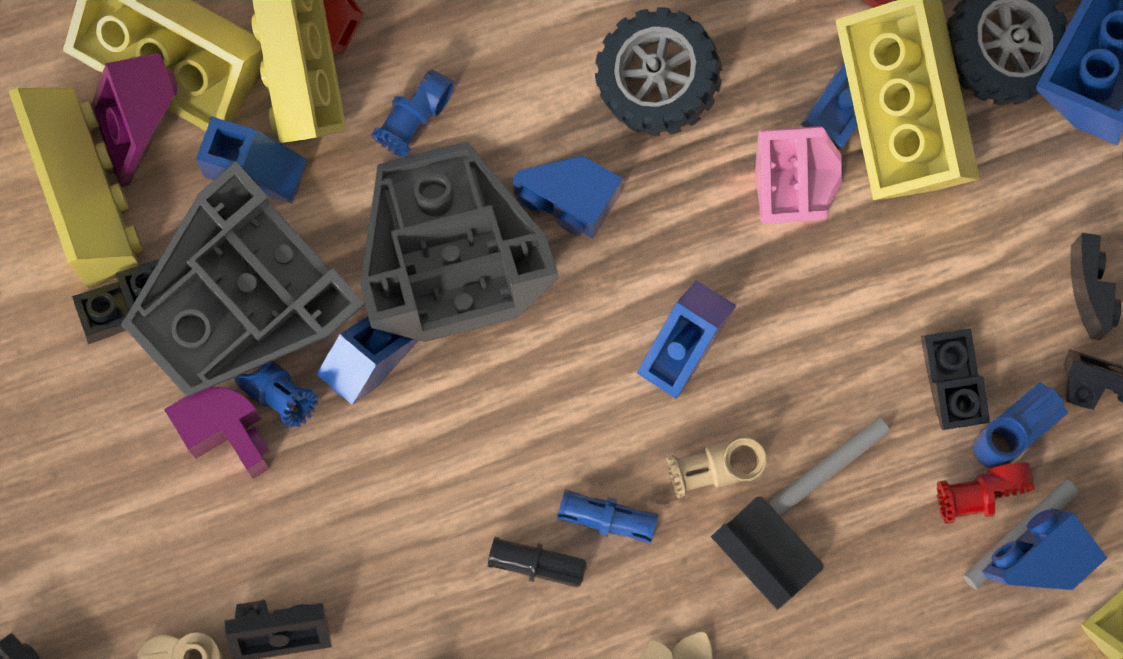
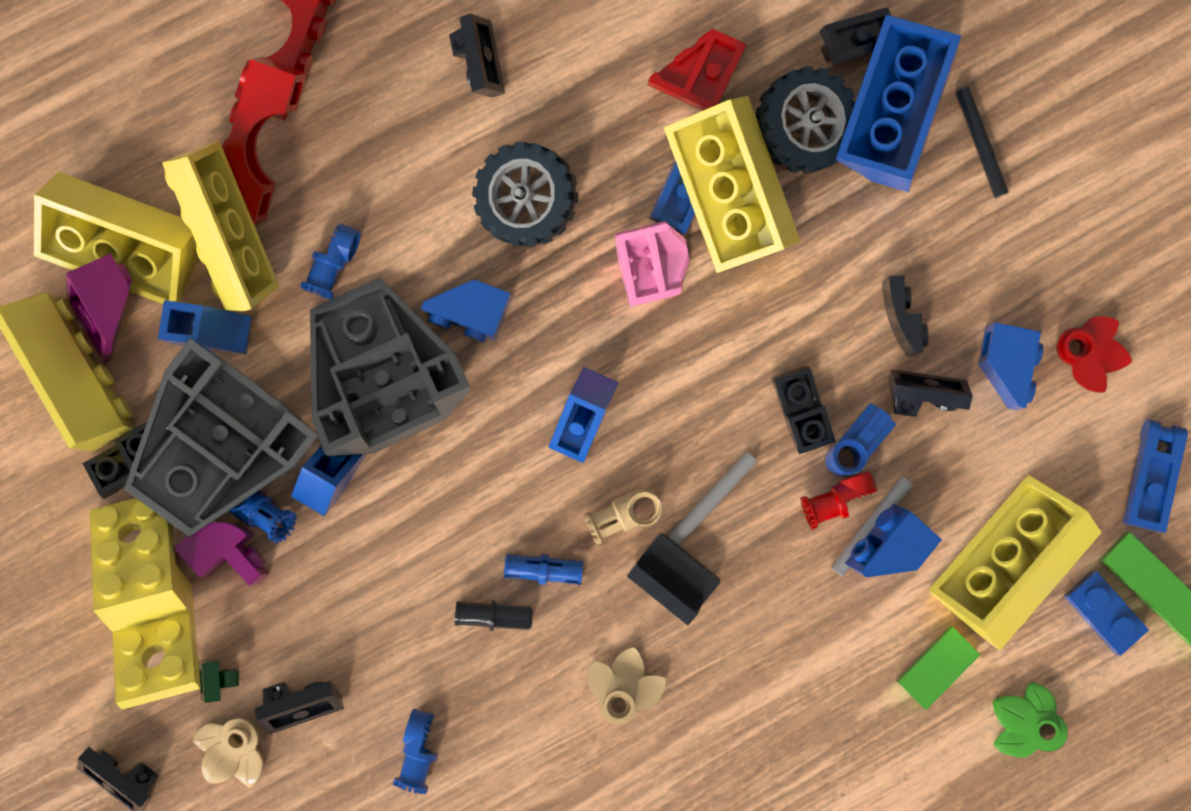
camera: 10 degrees left, 10 degrees up
(115, 468) = (143, 603): none -> light yellow bracket
(178, 581) = (213, 679): none -> dark green tile

